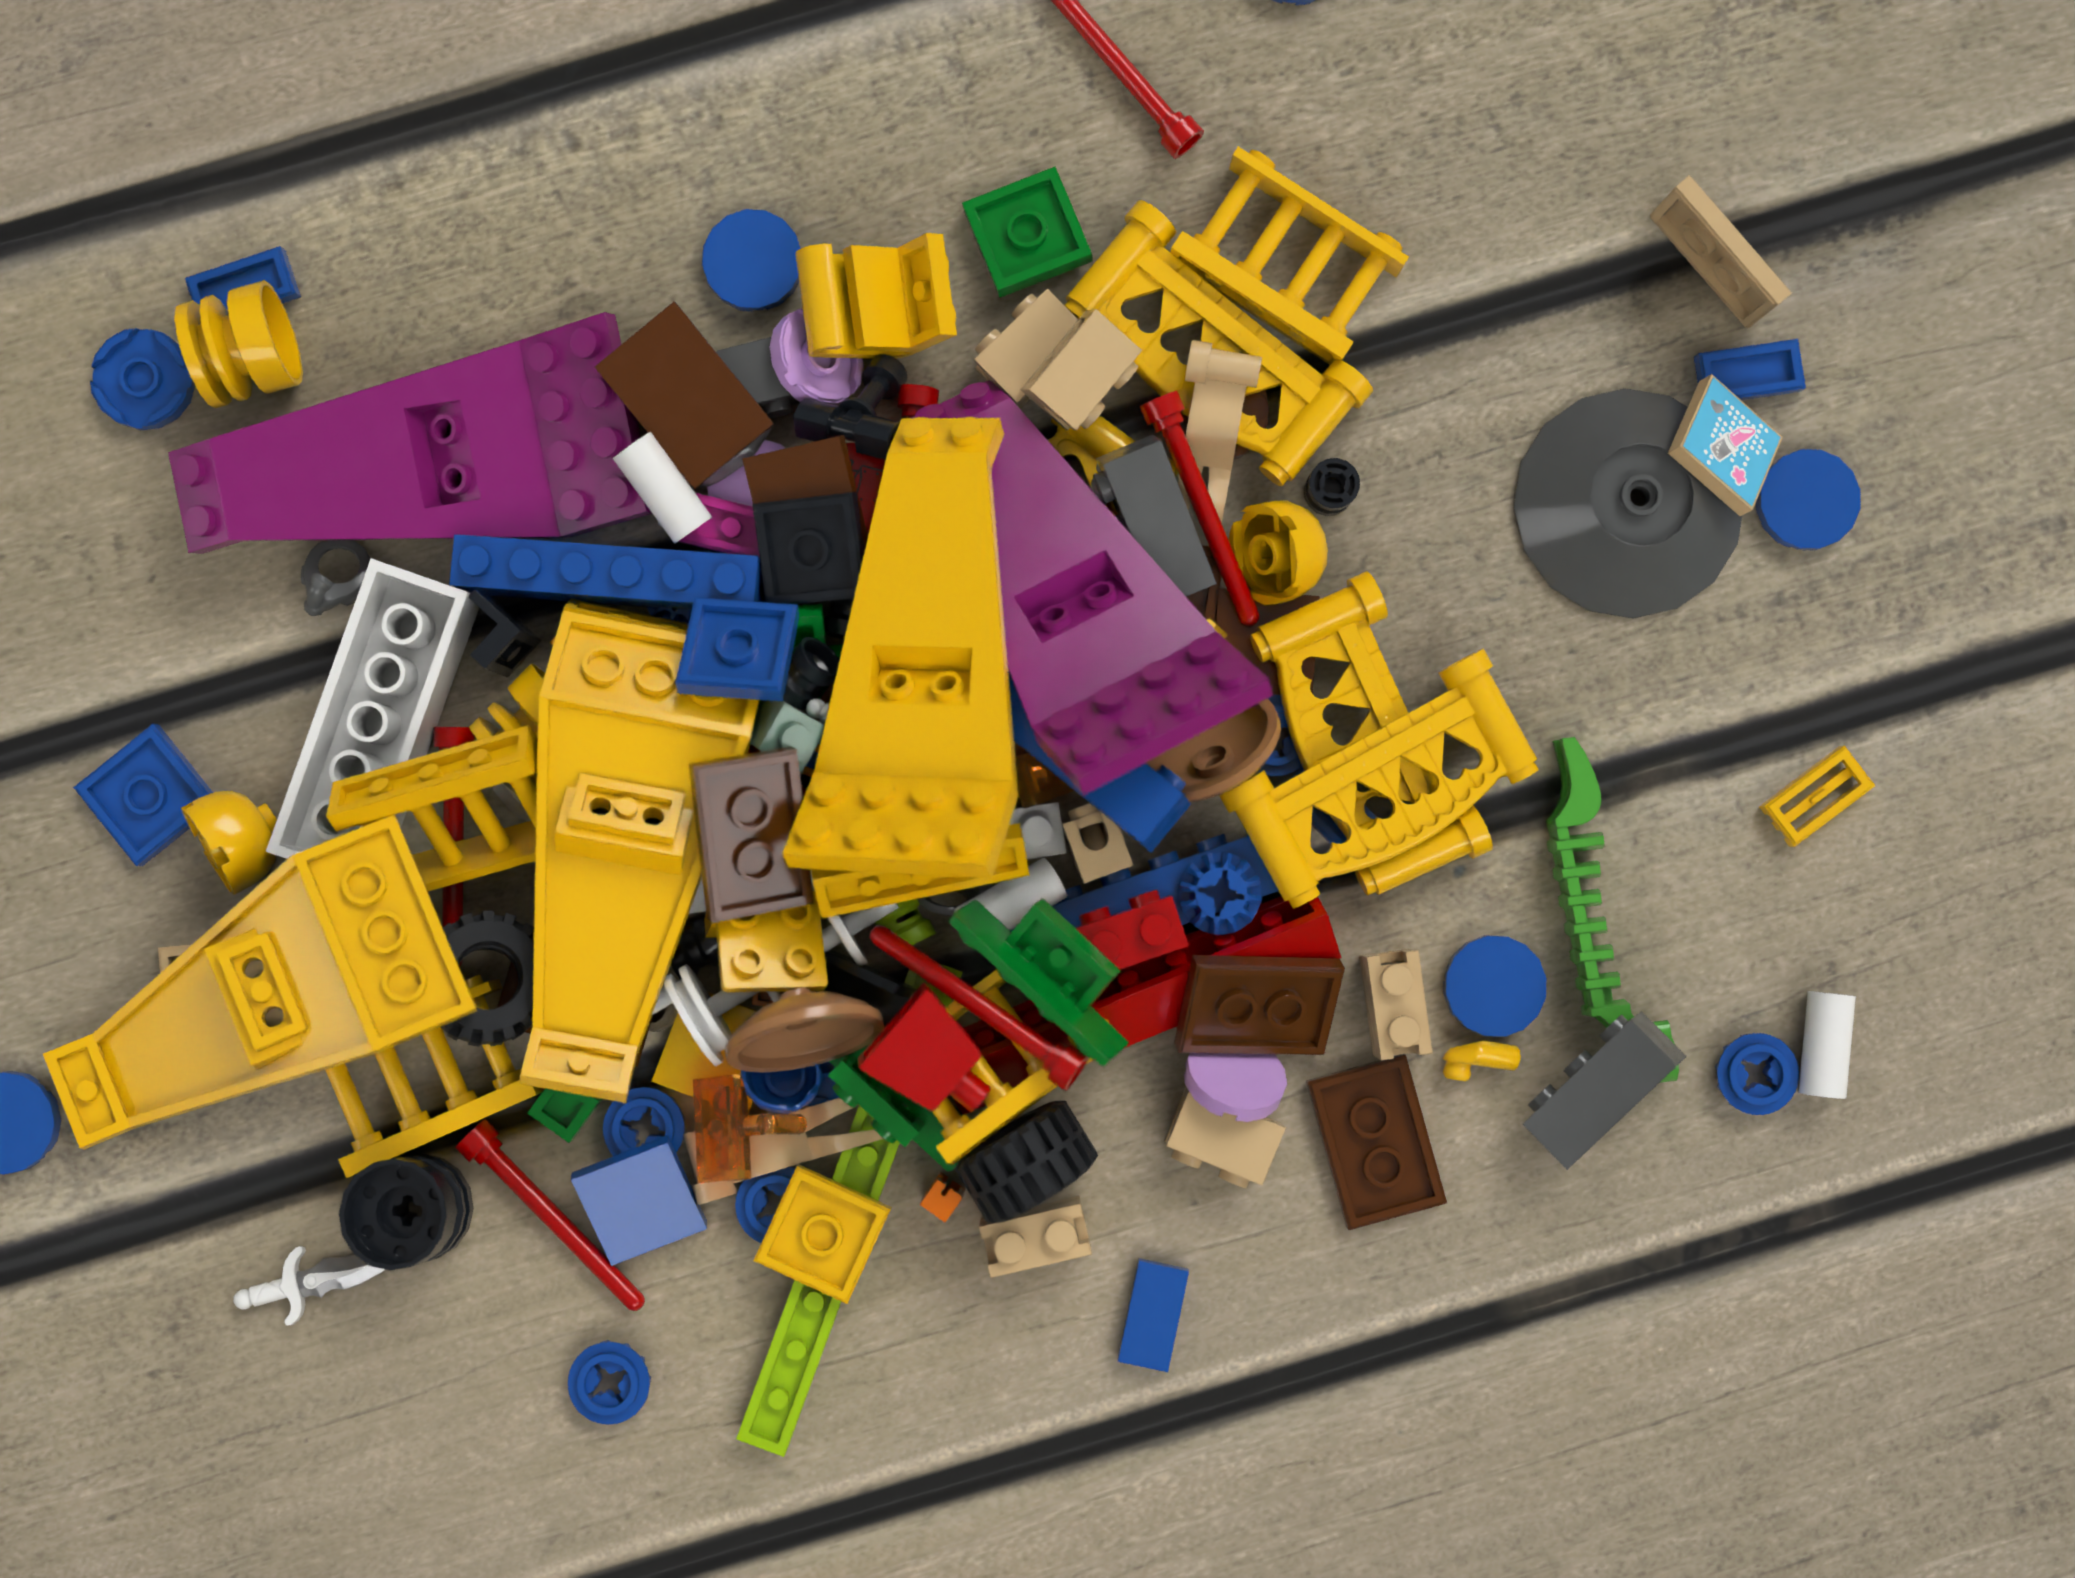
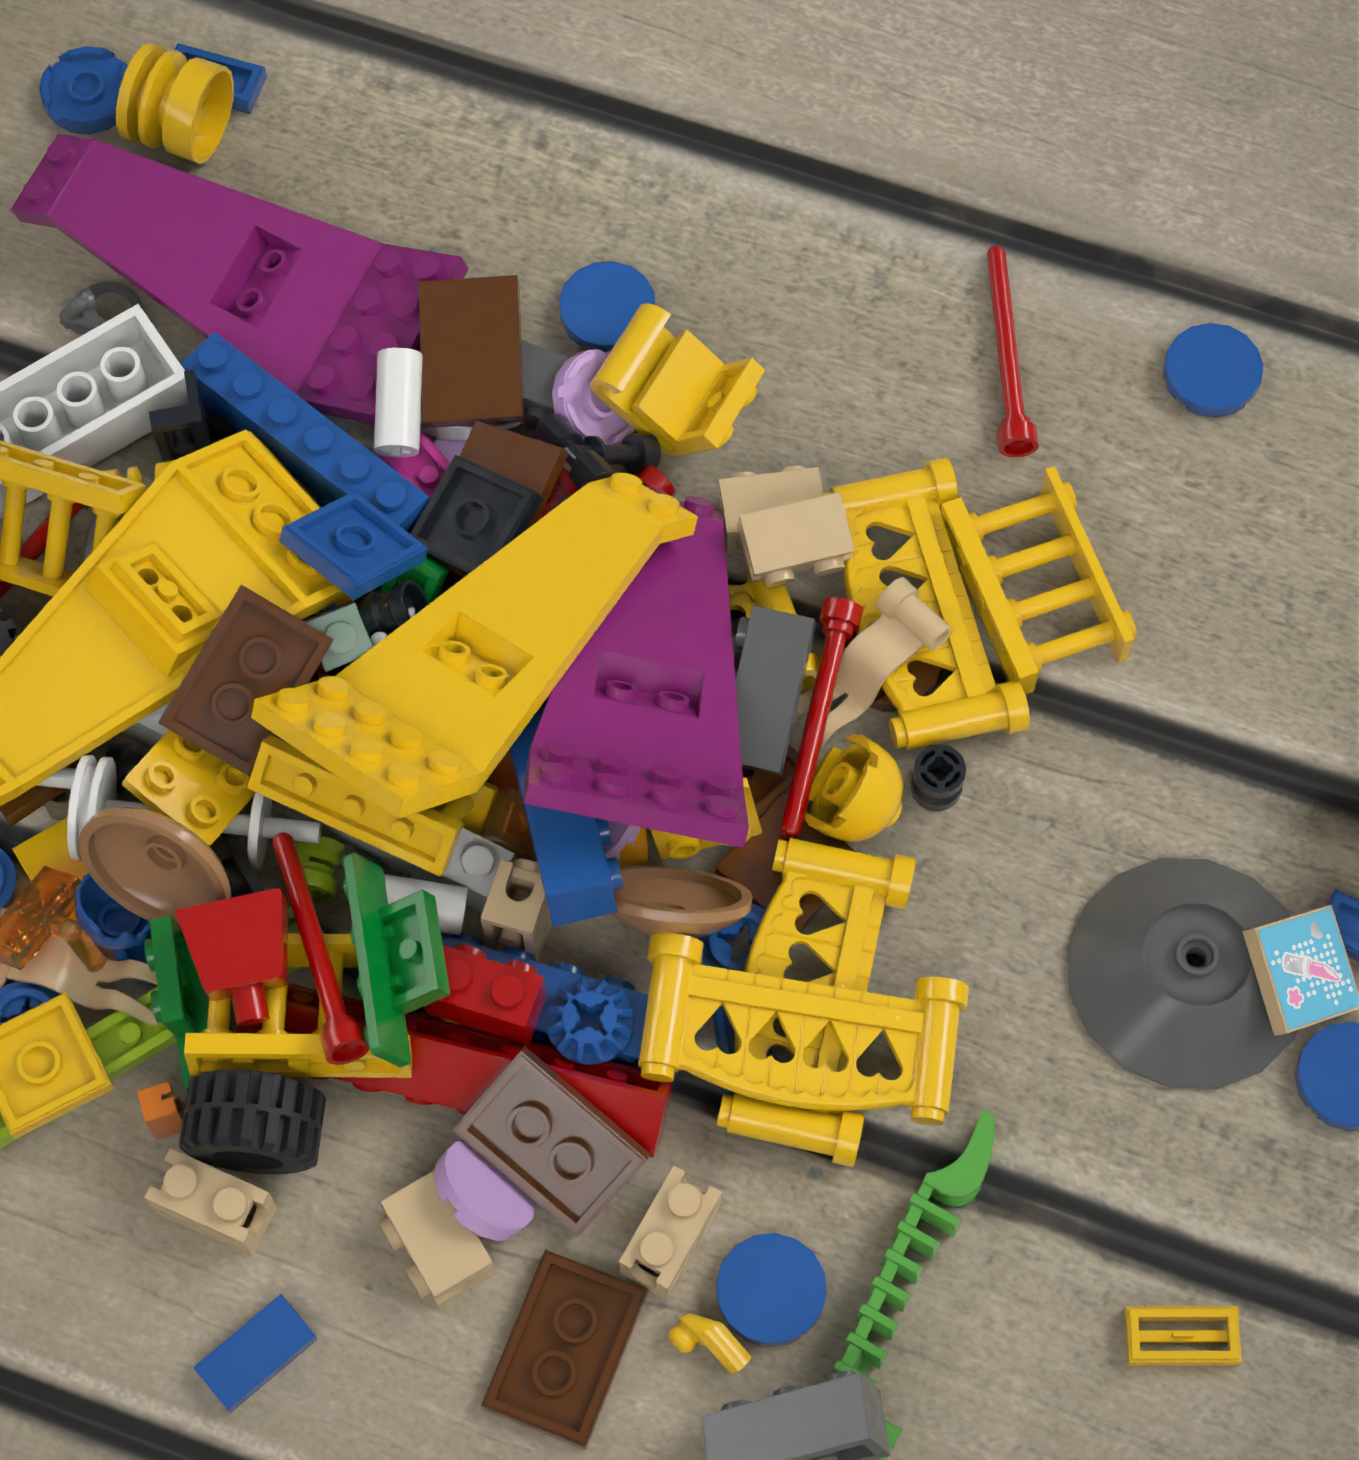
camera: 35 degrees right, 20 degrees down
(1027, 232) = (838, 426): green plate -> none

